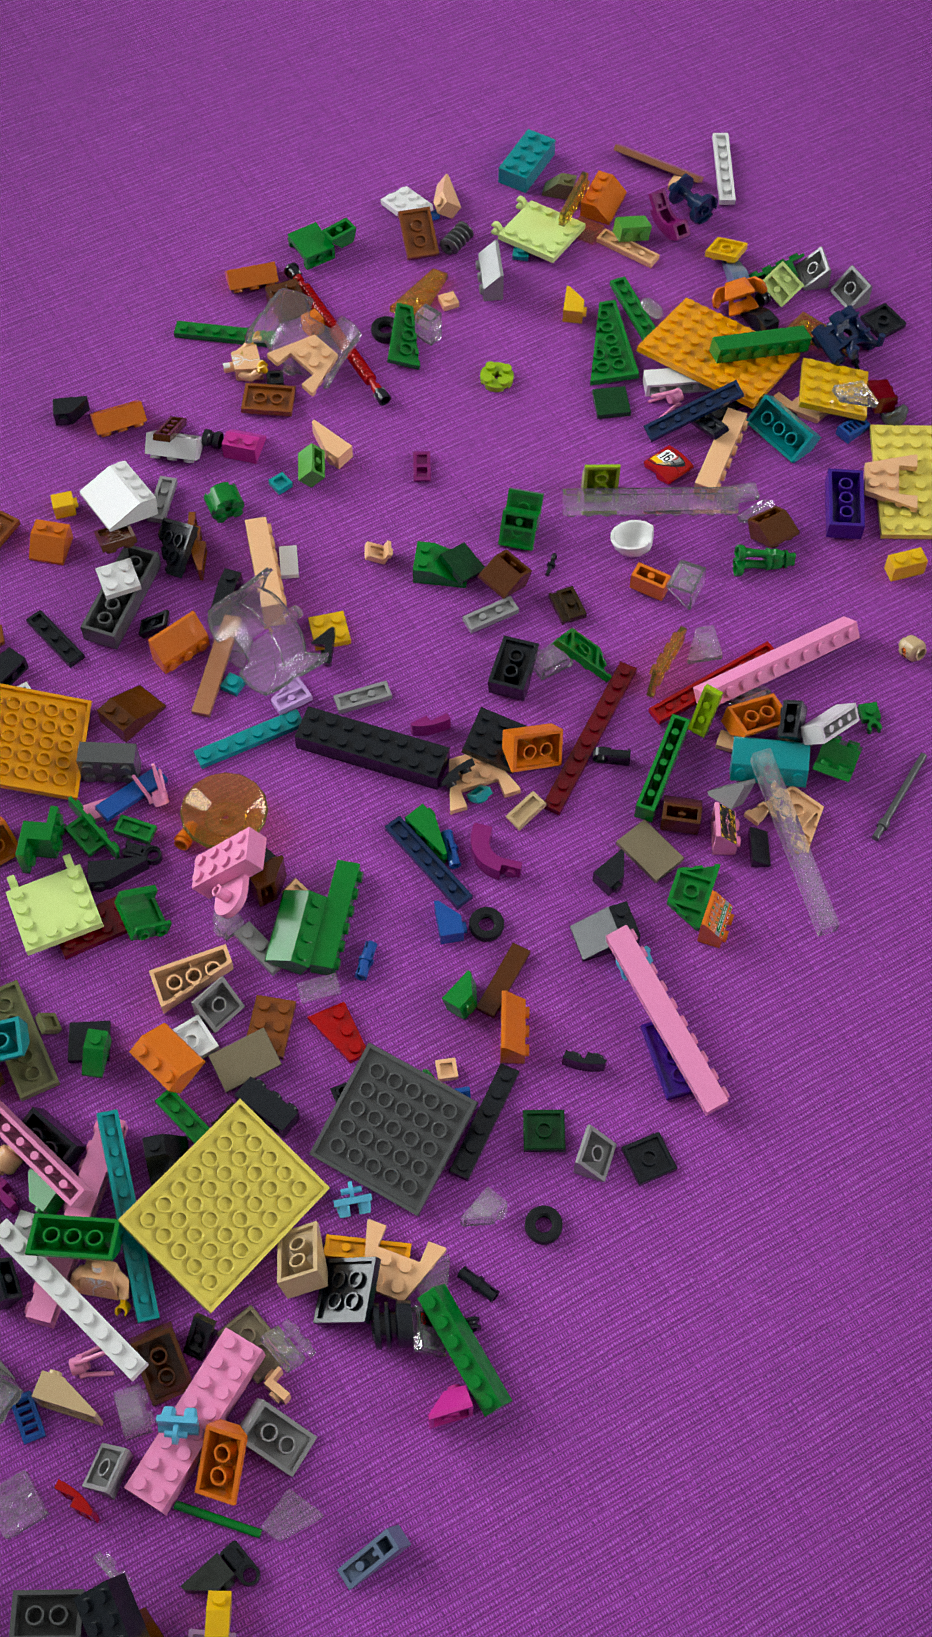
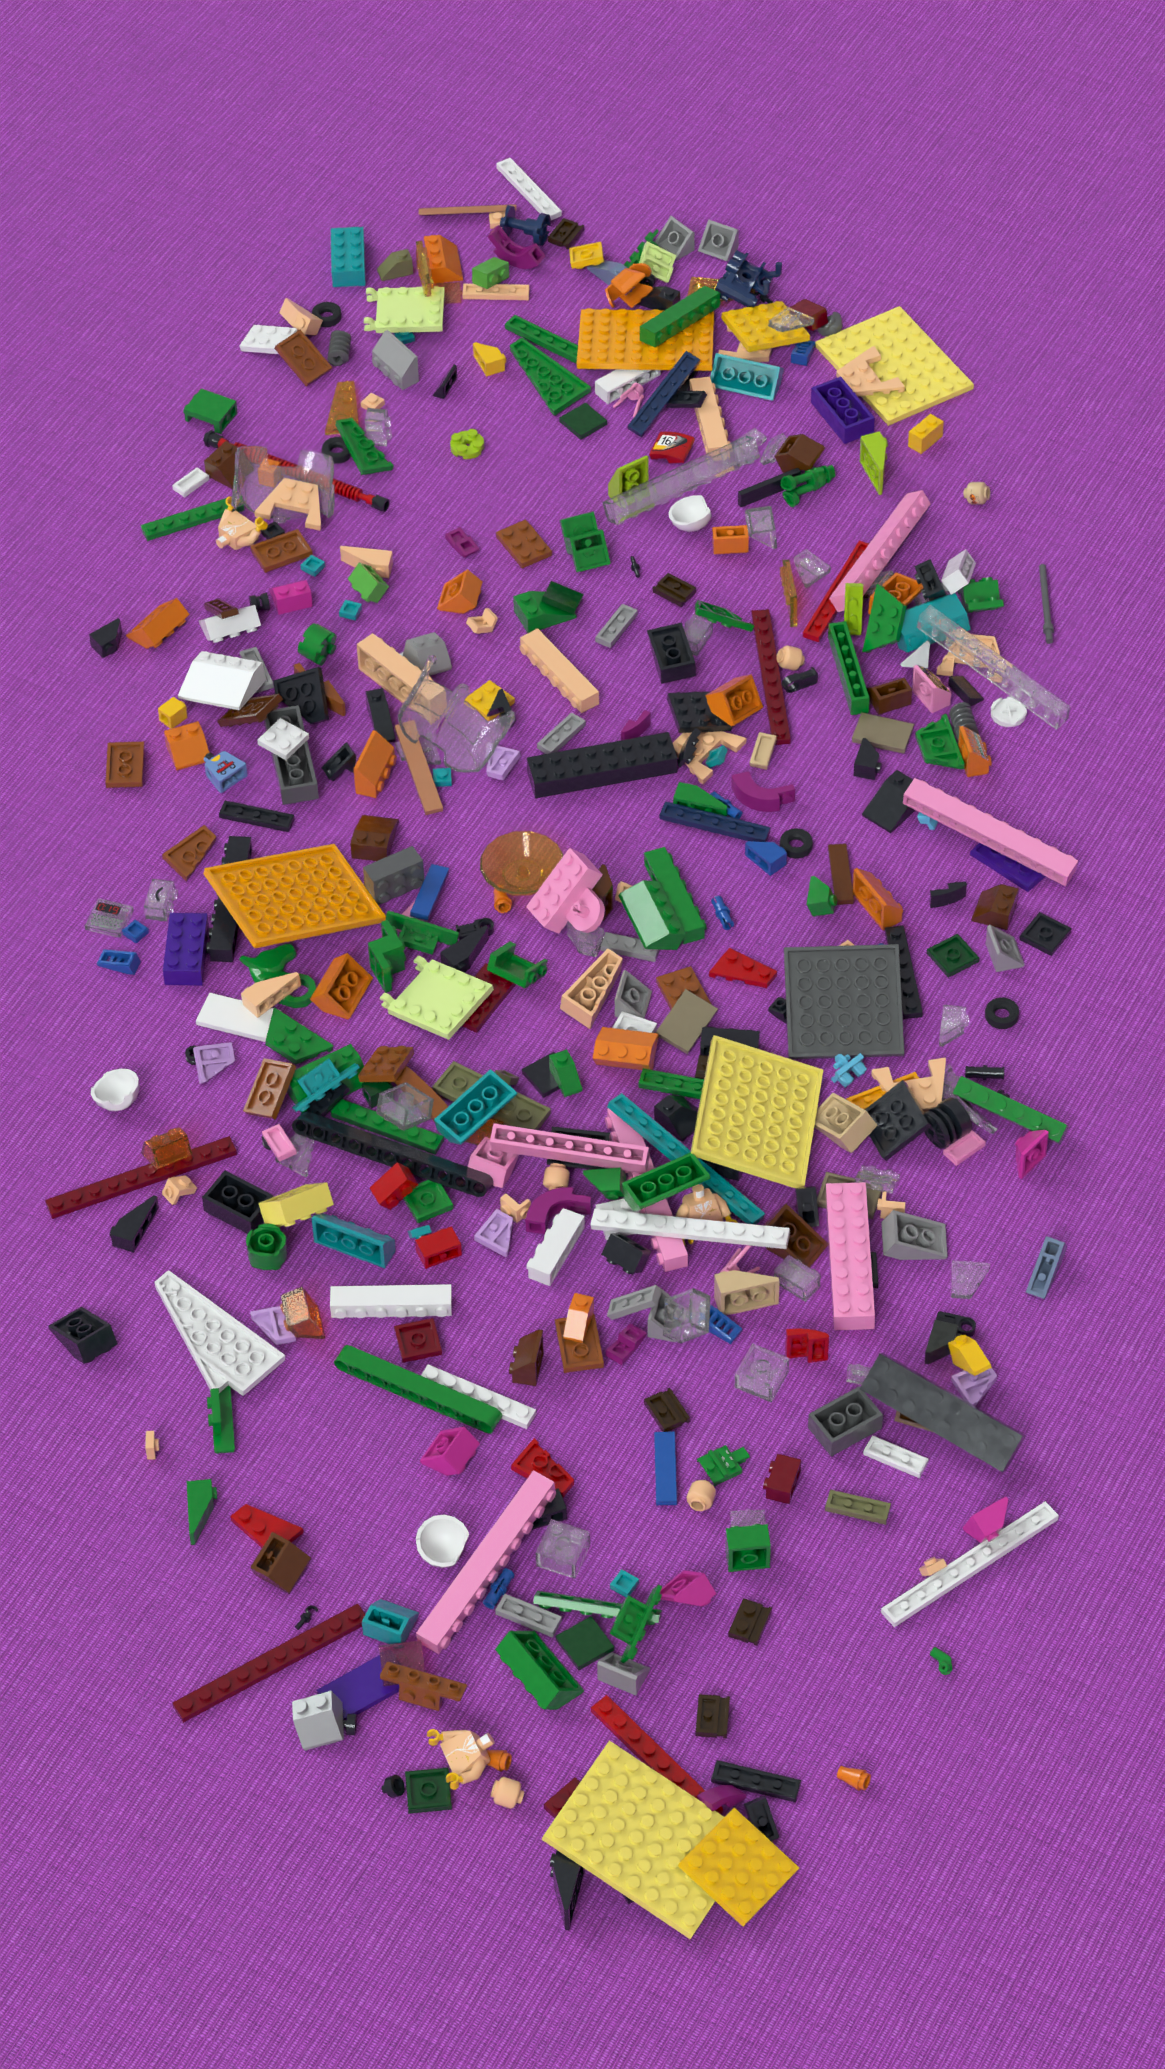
camera: 30 degrees left, 10 degrees down
(59, 581) = (224, 770): none -> medium blue torso
(108, 1470) = (809, 1314): light grey slope -> none
(135, 829) = (455, 915): green plate -> none
(159, 796) = (456, 881): bright pink plant -> none
(178, 1426) = (845, 1252): medium azure hips -> none
(218, 1519) = (914, 1309): green bar -> none
(221, 1461) = (896, 1260): orange slope -> none
(248, 301) = (190, 482): none -> white tile
(248, 739) = (490, 809): teal plate -> none
(251, 277) = (178, 459): orange slope -> none
(282, 426) = (312, 565): none -> teal plate
(306, 559) = (419, 649): none -> light grey slope
(319, 988) = (704, 945): clear brick -> none
(340, 233) = (232, 386): green slope -> none
(382, 515) = (460, 593): none -> orange slope
(398, 1359) = (964, 1148): none -> bright pink tile
(407, 633) = (559, 670): none -> light nougat brick
(472, 196) = (327, 307): none -> black tyre
(473, 494) = (523, 543): none -> dark orange plate
(505, 574) = (606, 588): reddish brown slope -> none
(522, 312) = (446, 383): none -> black slope
(619, 728) = (790, 657): none -> light nougat head
(621, 1102) = (996, 906): none -> reddish brown slope
(652, 308) = (559, 329): clear gear -> none
(719, 546) = (763, 489): none -> black tile
(725, 222) = (565, 233): none -> dark brown plate
(725, 737) = (884, 620): none -> green wing
(731, 880) = (962, 716): none -> dark grey piece
(783, 893) = (1008, 712): none -> white tile
(839, 566) = (873, 458): none -> lime slope
(870, 714) = (982, 558): green plate -> none
(883, 320) = (763, 252): black tile -> none

